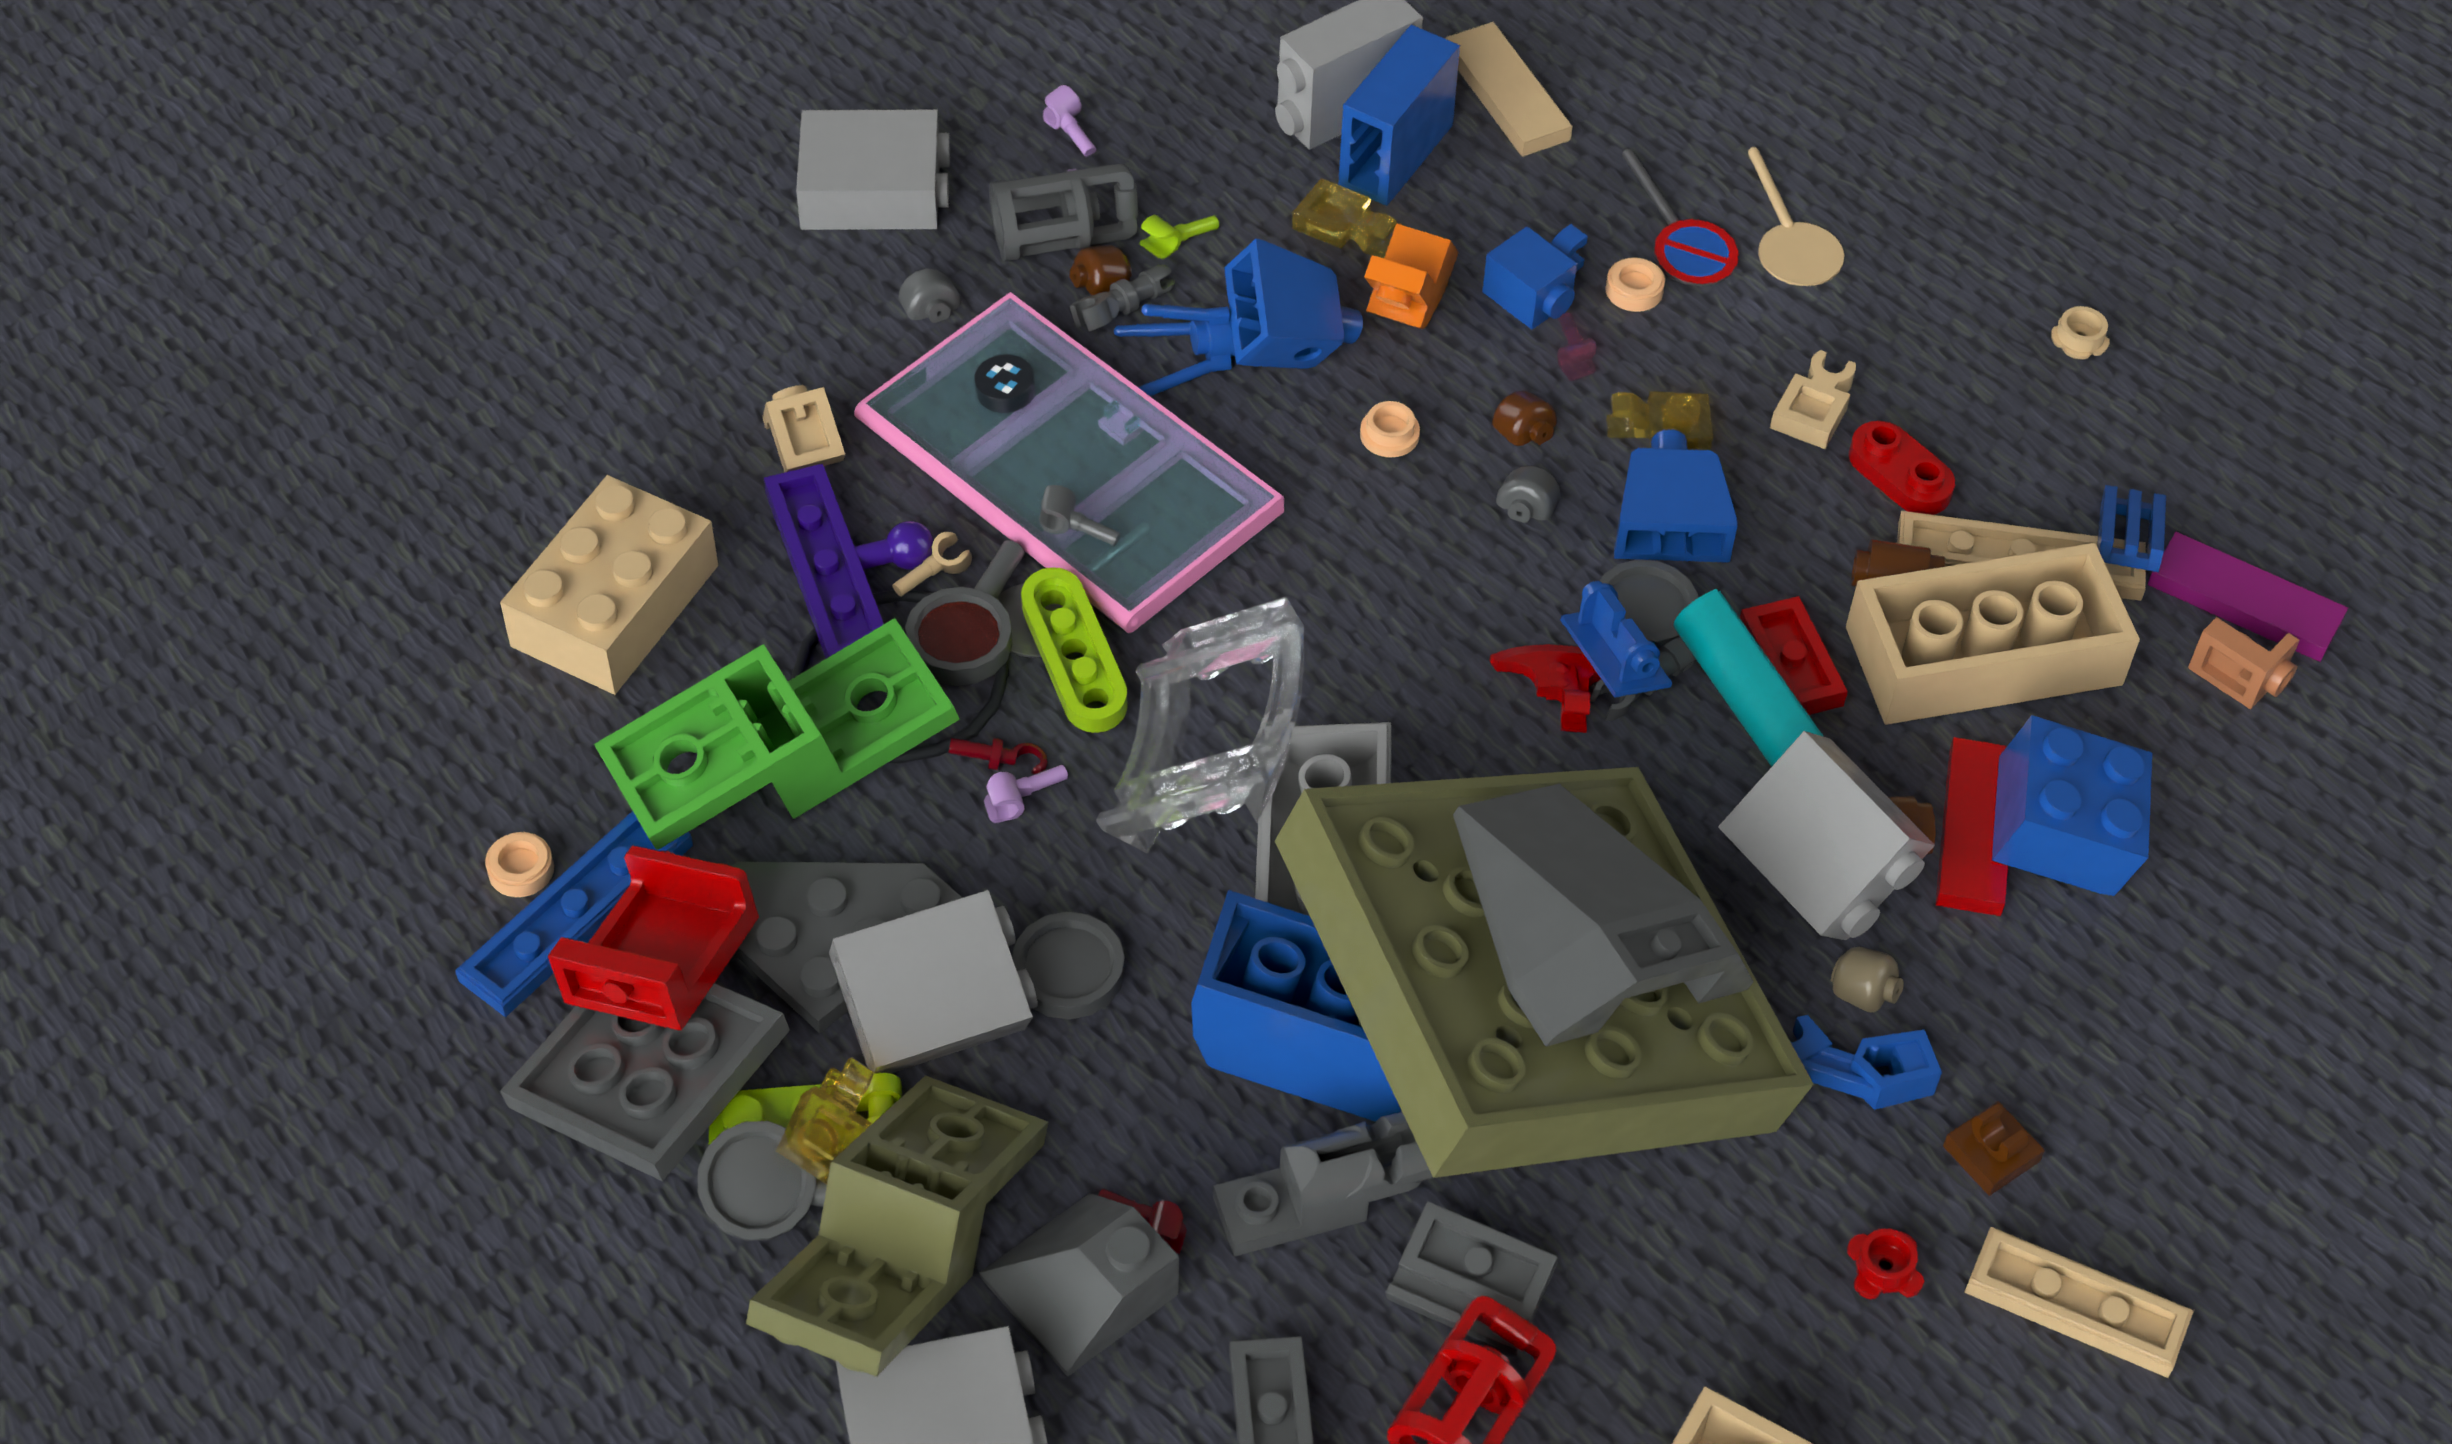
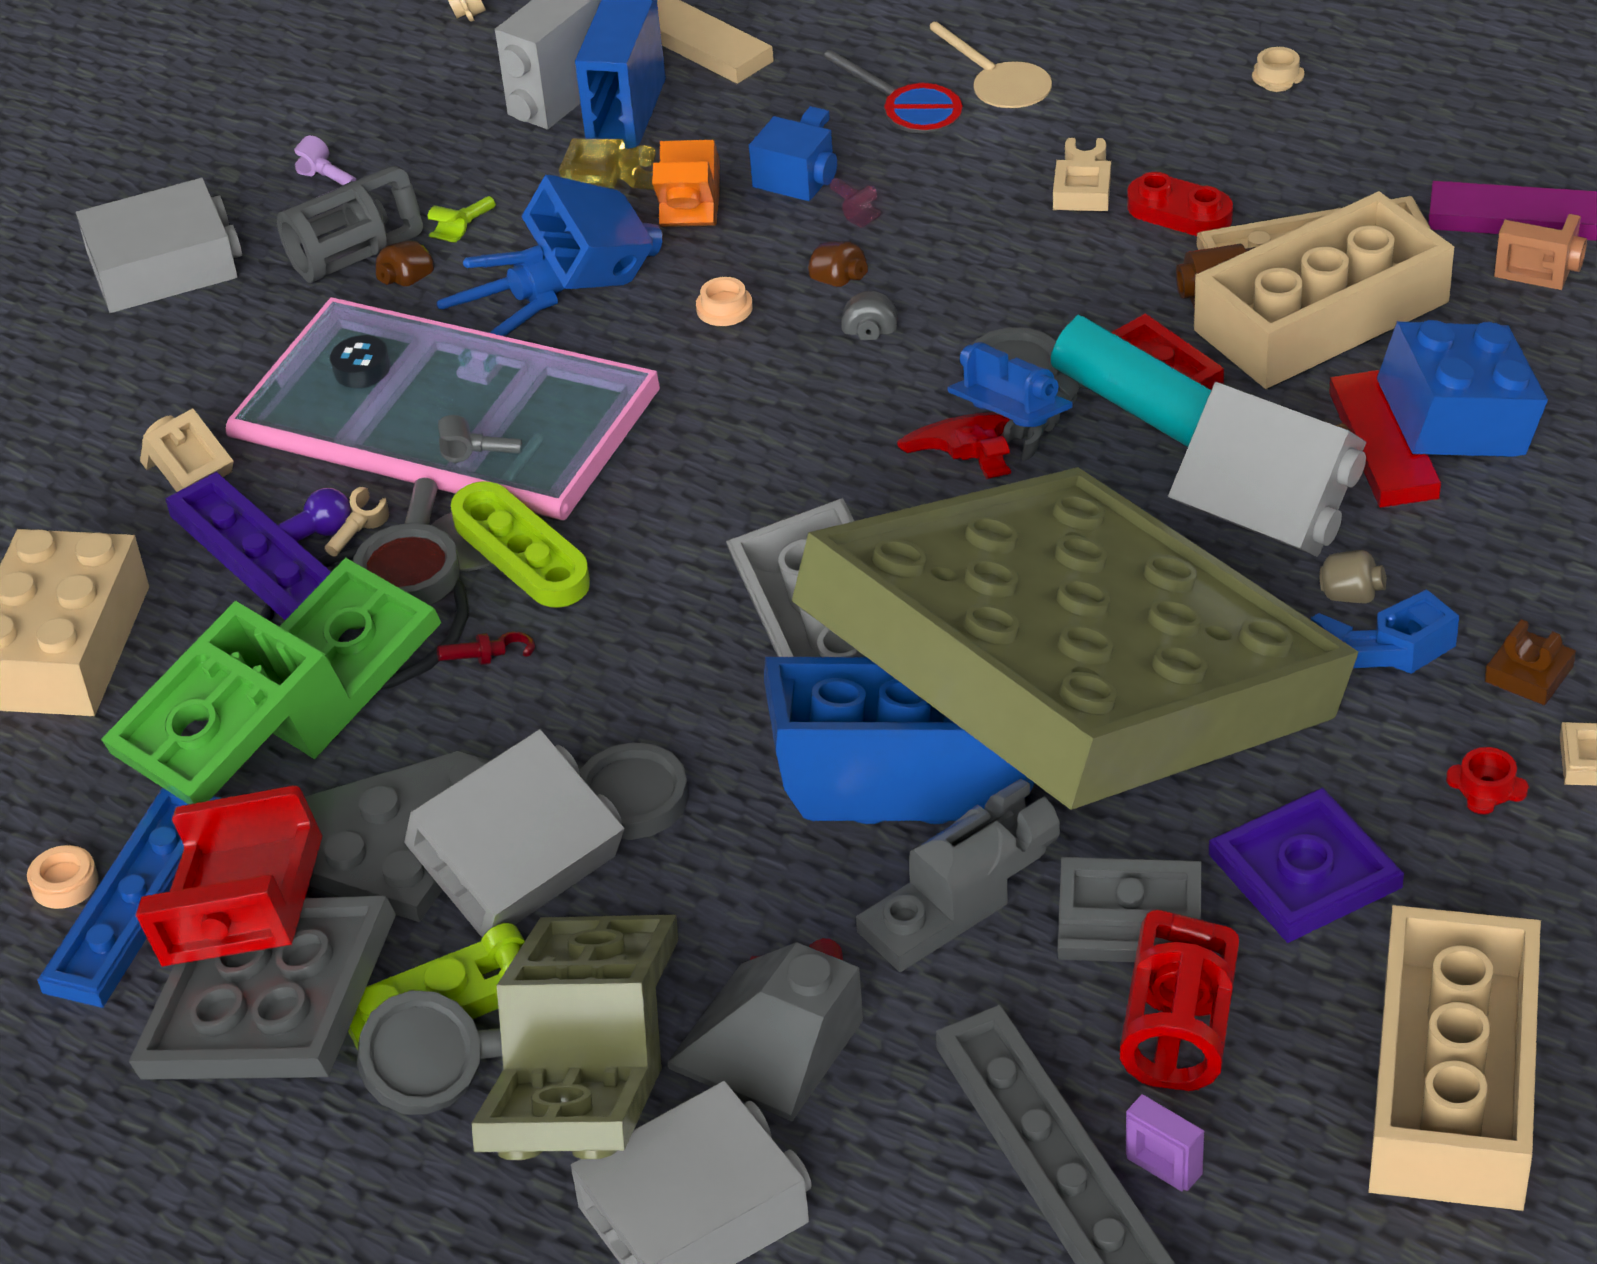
camera: 15 degrees left, 10 degrees down
(827, 1120) = (470, 971): clear yellow plate -> none
(929, 295) = (254, 326): dark grey piece -> none
(1006, 793) = (513, 676): lavender hand -> none
(1123, 296) = (433, 276): dark grey piece -> none
(1155, 785) = (649, 624): clear wedge -> none
(1585, 914) = (1111, 562): dark grey wedge -> none
(1635, 284) = (883, 142): light nougat tile -> none
(1663, 411) = (962, 227): clear yellow plate -> none
(1666, 1288) = (1305, 864): none -> dark purple tile
(1675, 504) = (1004, 281): blue torso -> none
(2133, 510) = (1410, 185): blue tile -> none

